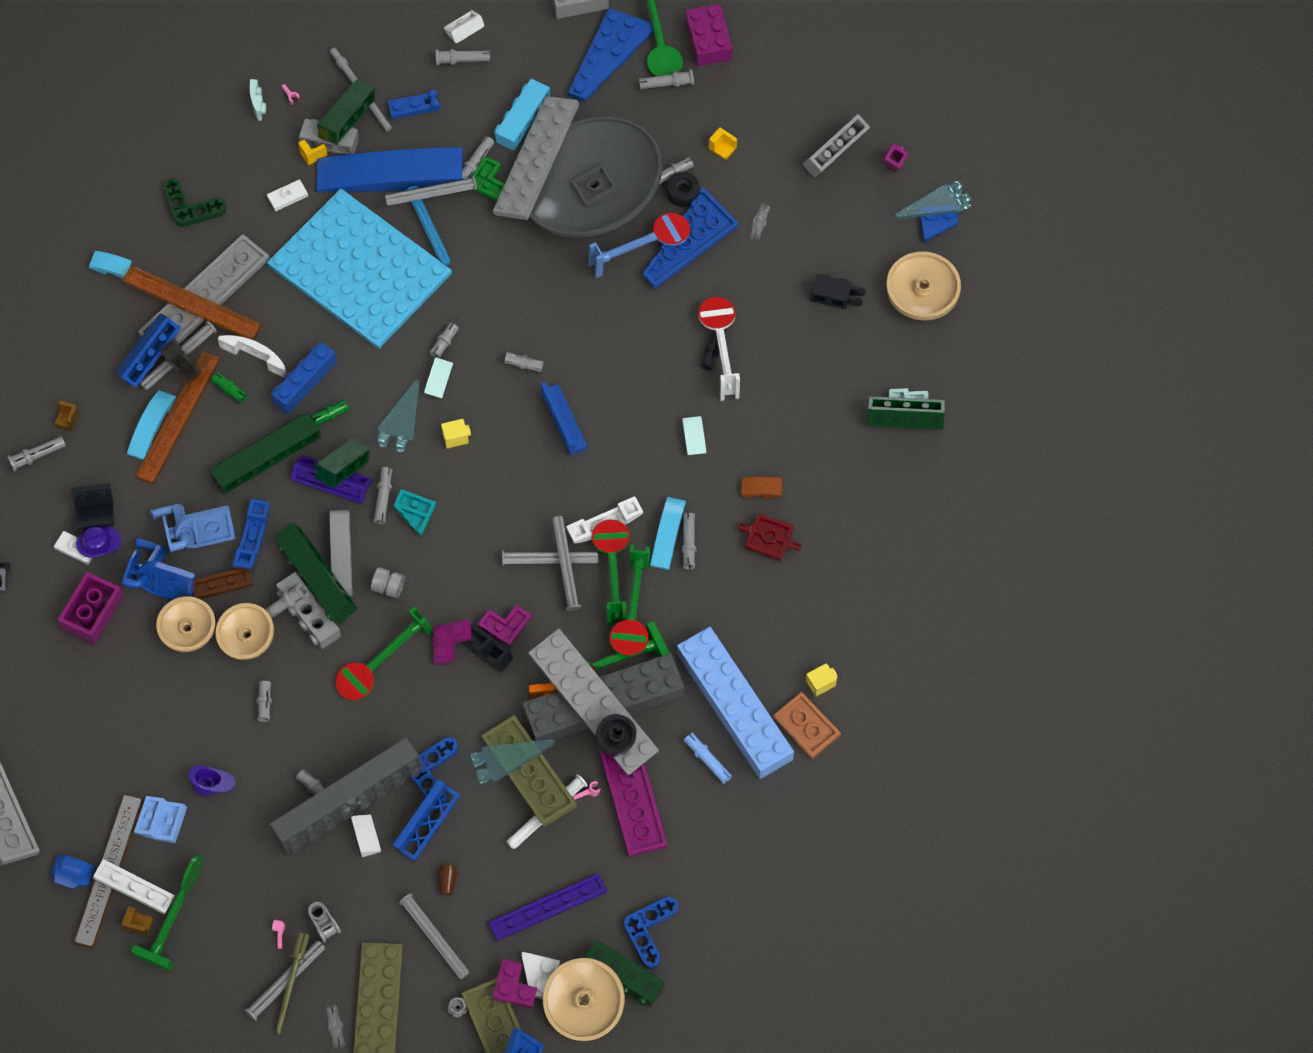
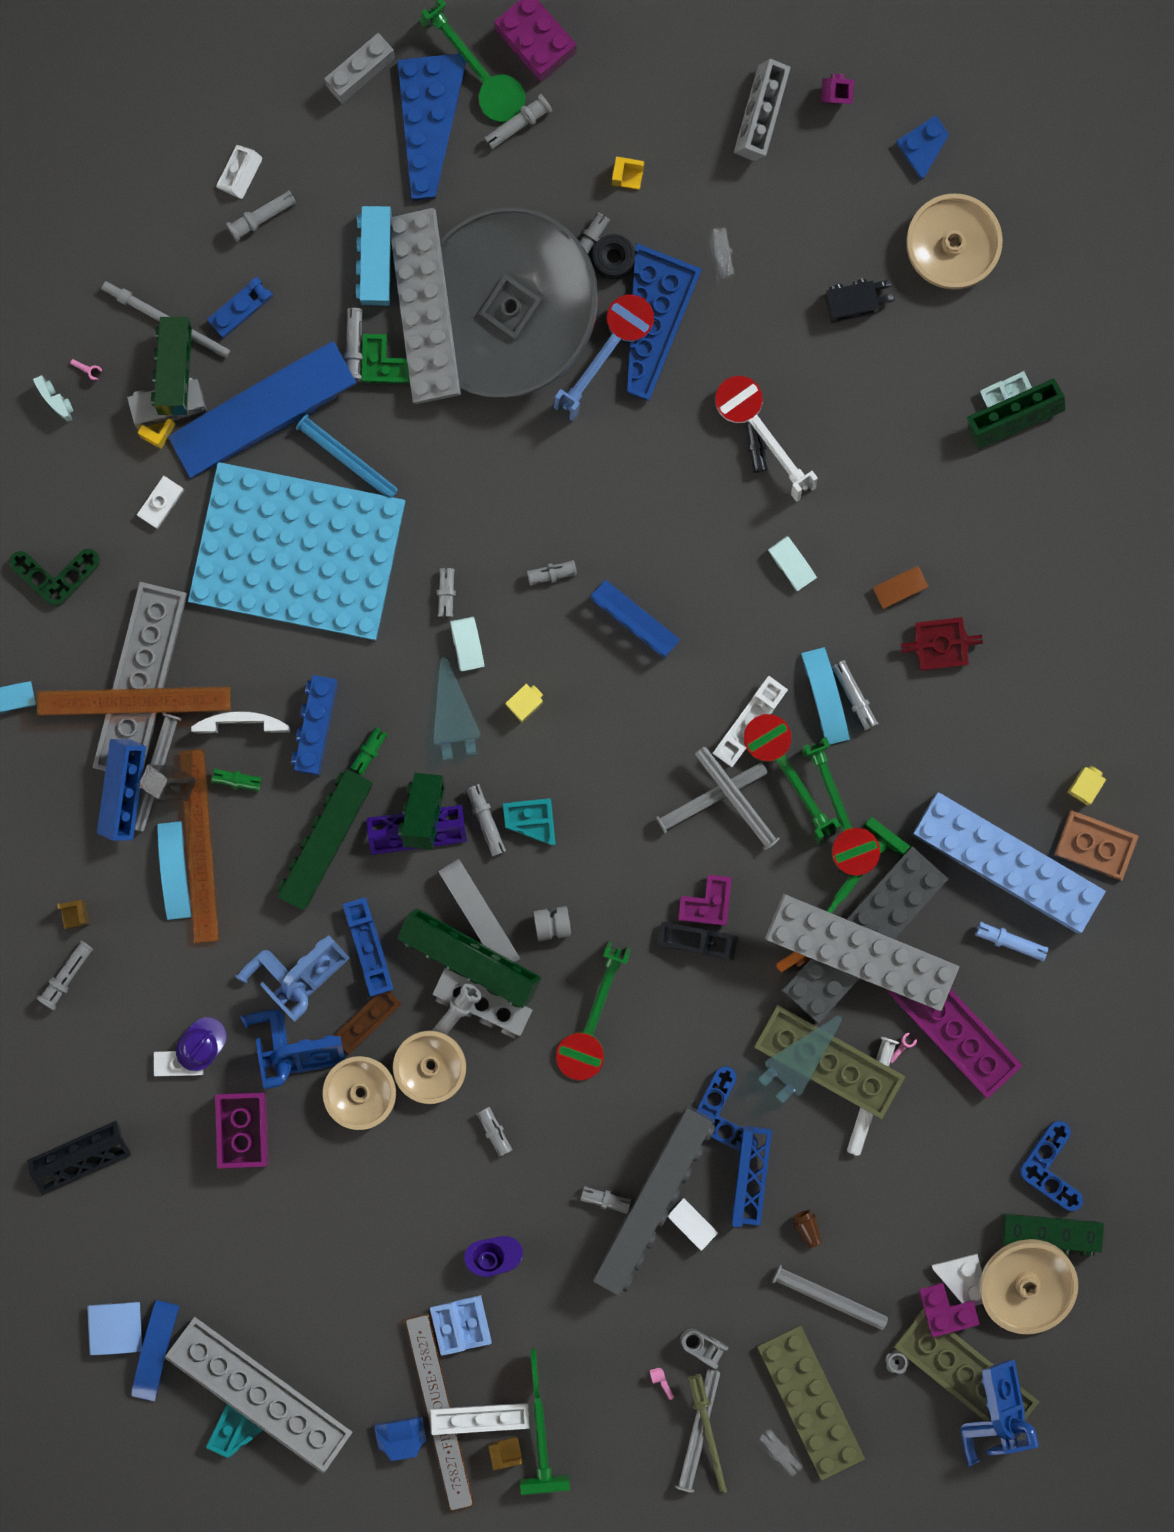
camera: 30 degrees left, 20 degrees up
(93, 506) = (173, 1010): black bracket -> none
(431, 191) = (328, 415): light grey axle -> none
(446, 636) = (652, 952): magenta plate -> none
(547, 907) = (930, 1200): dark purple tile -> none
(619, 724) = (925, 979): black brick -> none
(938, 202) = (914, 124): clear light blue flag -> none

